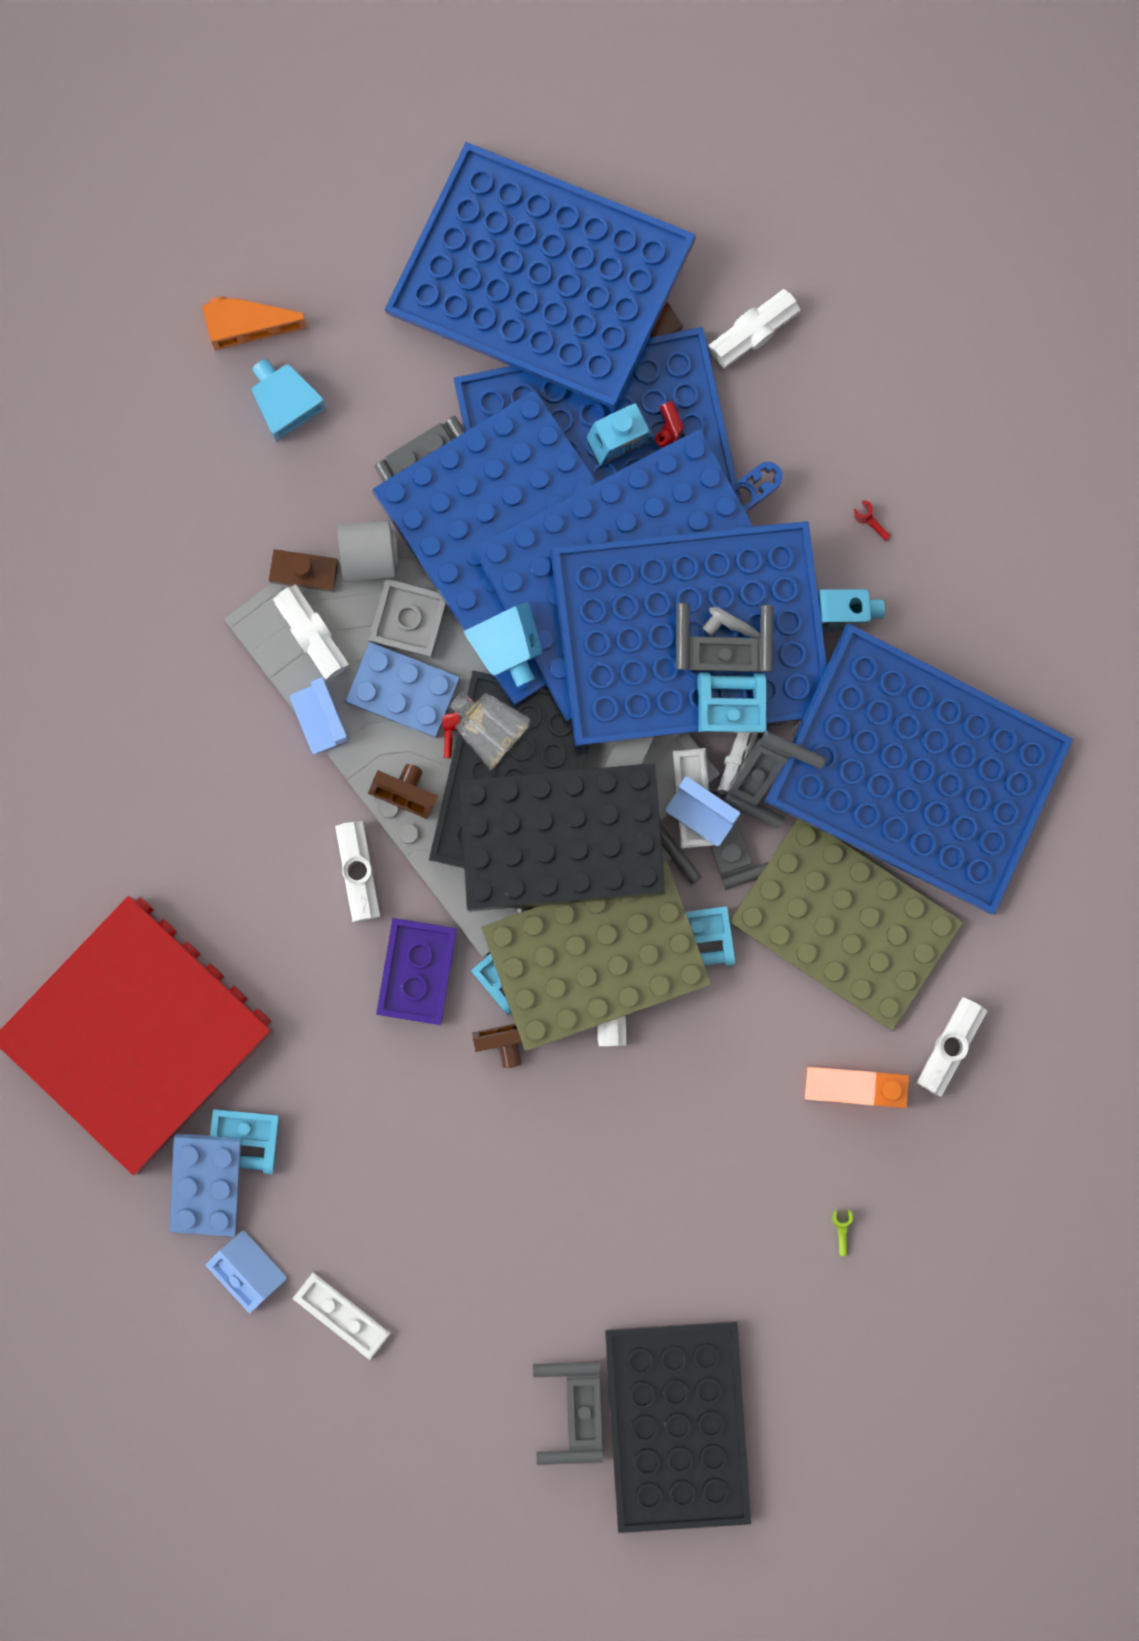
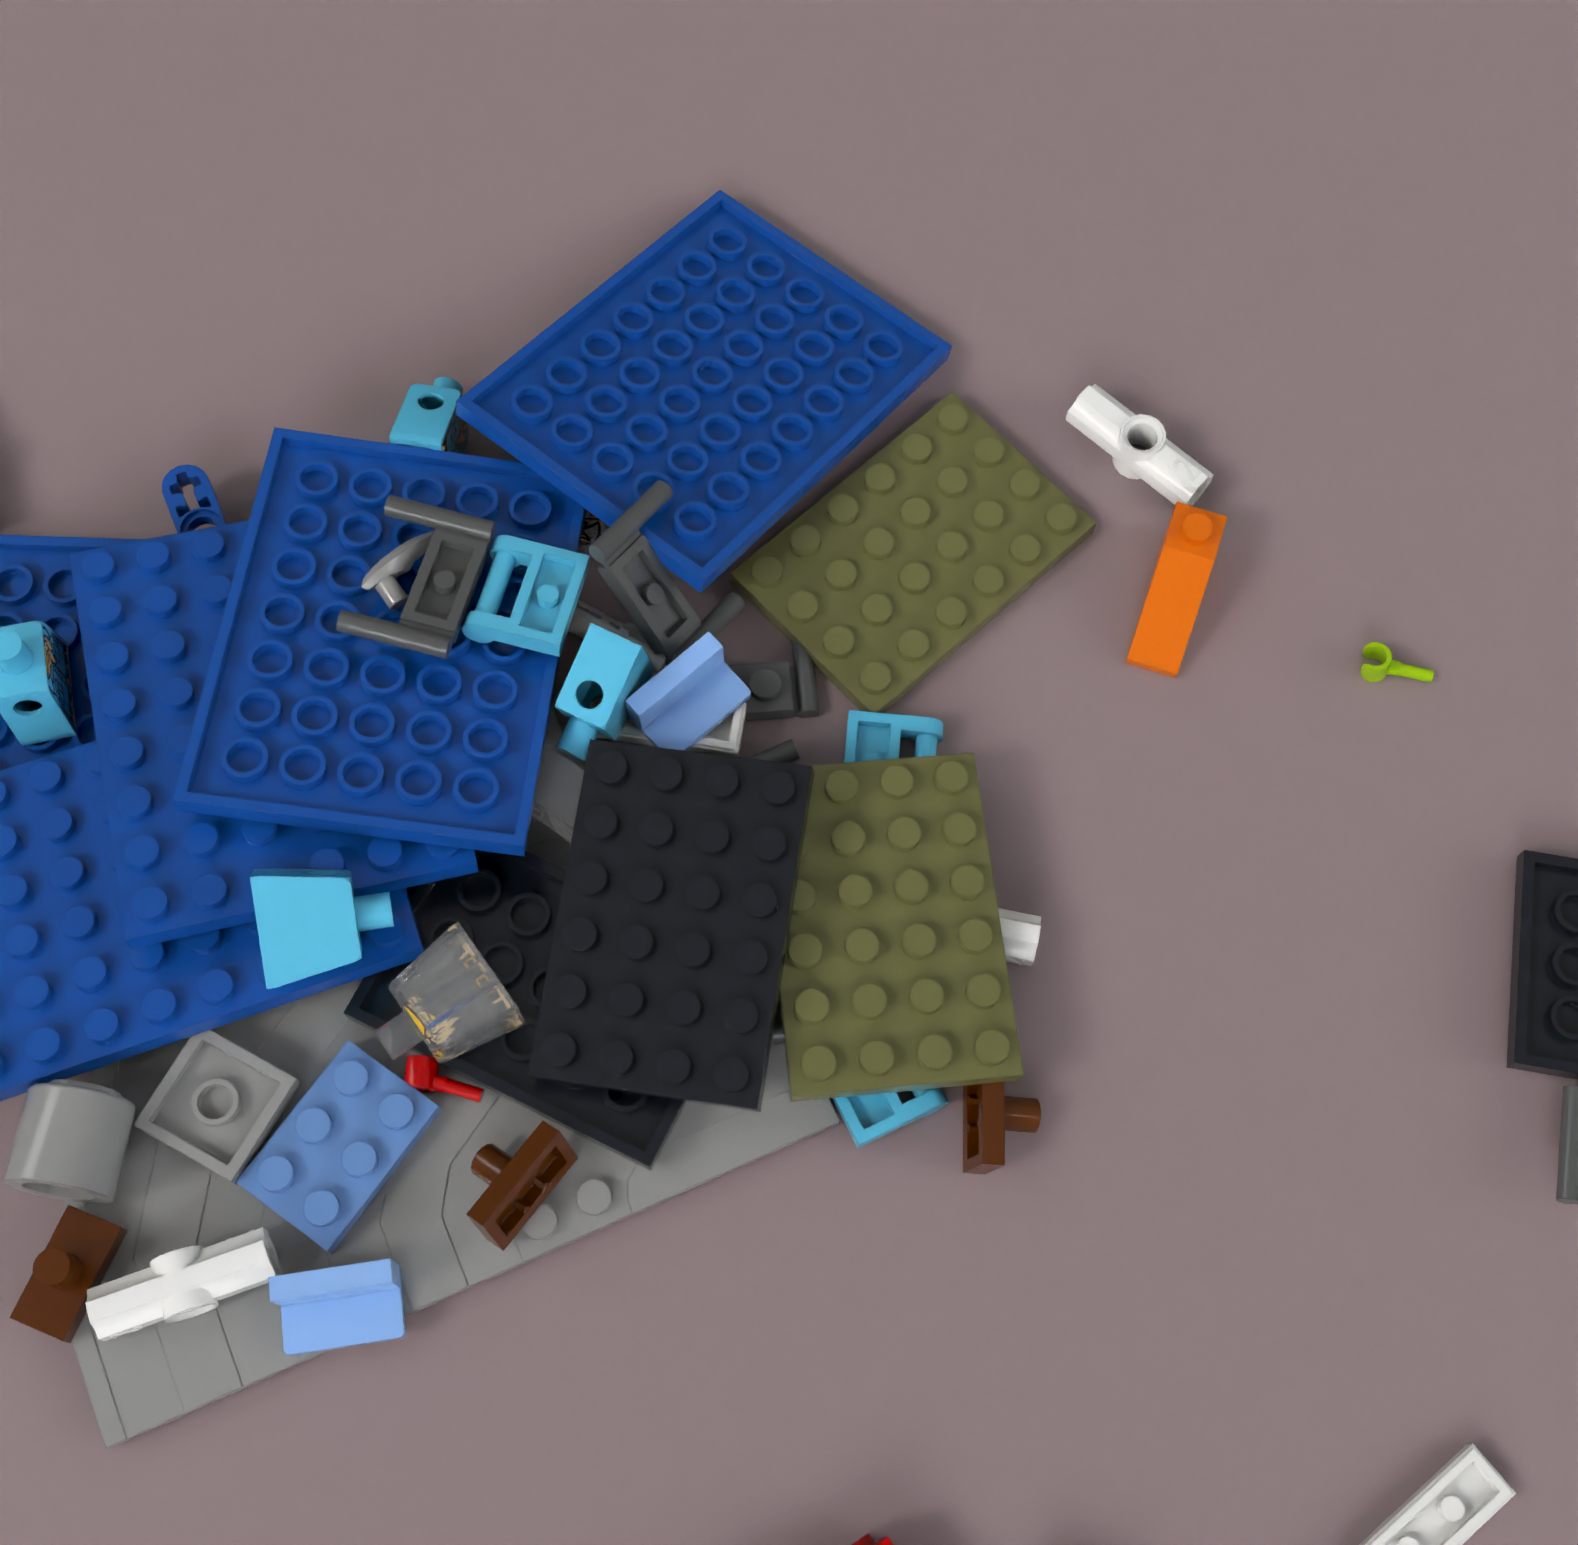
camera: 75 degrees left, 15 degrees down
(355, 850) = (595, 1303): white piece -> none
(416, 971) = (838, 1242): dark purple plate -> none
(673, 425) = (52, 606): red arm -> none
(702, 762) = (602, 668): none -> medium azure torso
(871, 520) = (302, 382): red hand -> none

